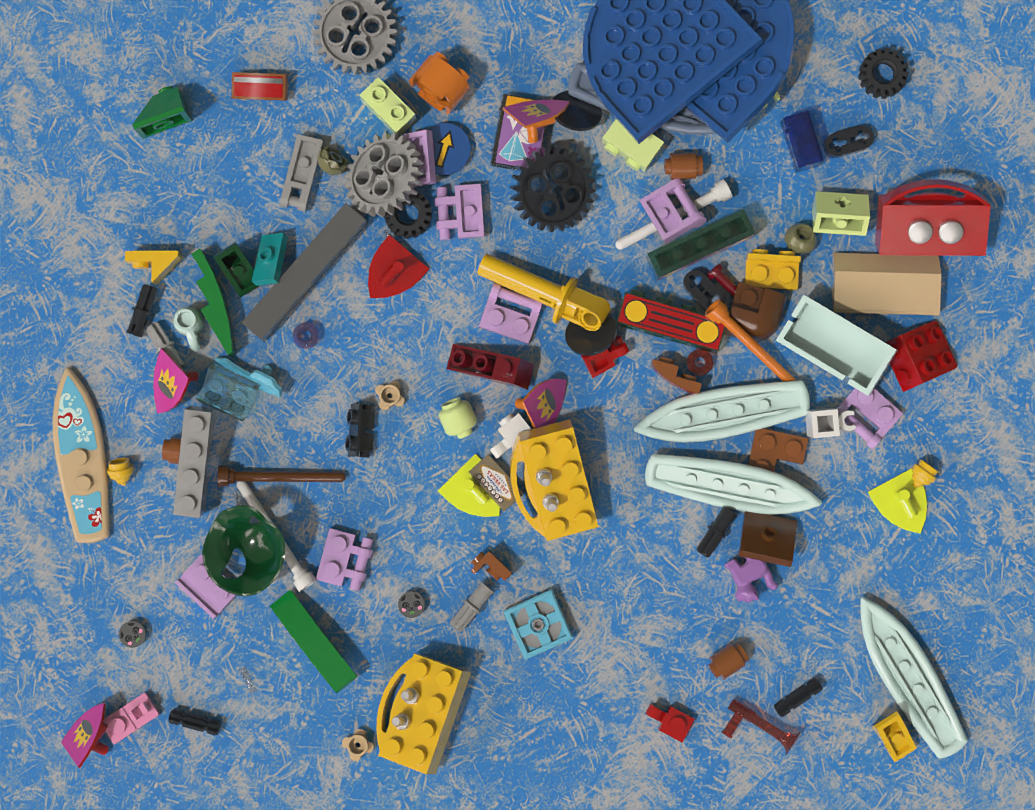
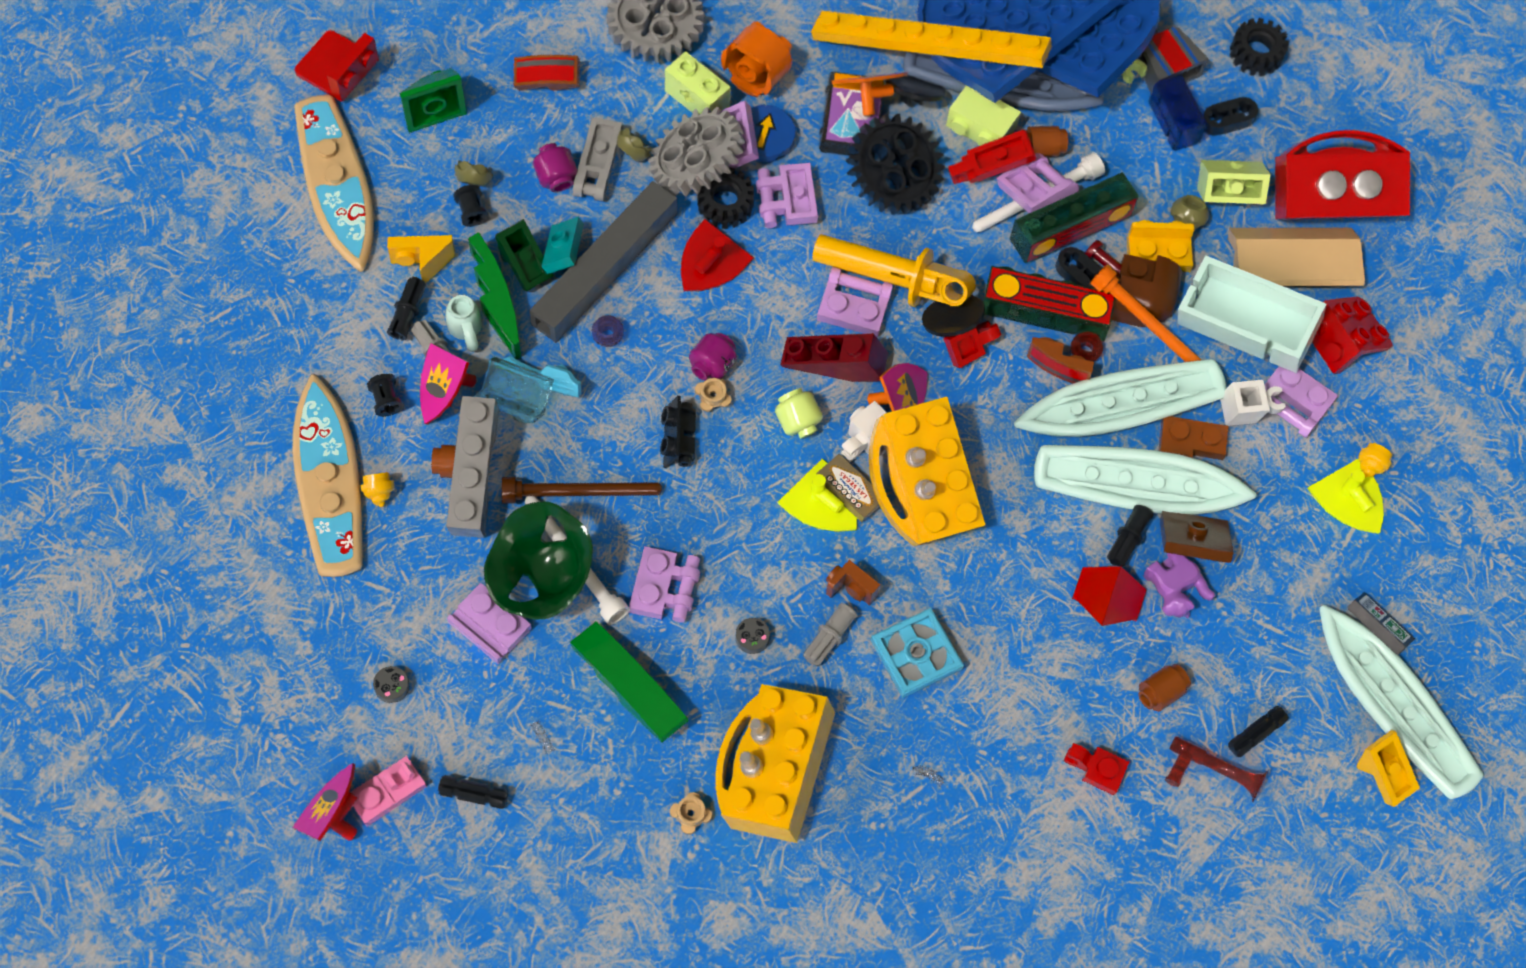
camera: 10 degrees left, 20 degrees down
(80, 73) = (338, 63): none -> red bracket
(82, 183) = (335, 179): none -> piece
(125, 390) = (385, 395): none -> black bush
(194, 216) = (471, 206): none -> black bush
(196, 186) = (473, 174): none -> olive plate
(265, 182) = (555, 167): none -> magenta head
(390, 364) = (713, 356): none -> magenta head
(542, 721) = (927, 773): none -> clear leg
(591, 72) = (932, 39): none -> yellow plate
(638, 184) = (993, 158): none -> red hinge
(692, 585) = (1109, 594): none -> red slope
(802, 87) = (1172, 55): none -> torso
(907, 614) = (1380, 623): none -> tile

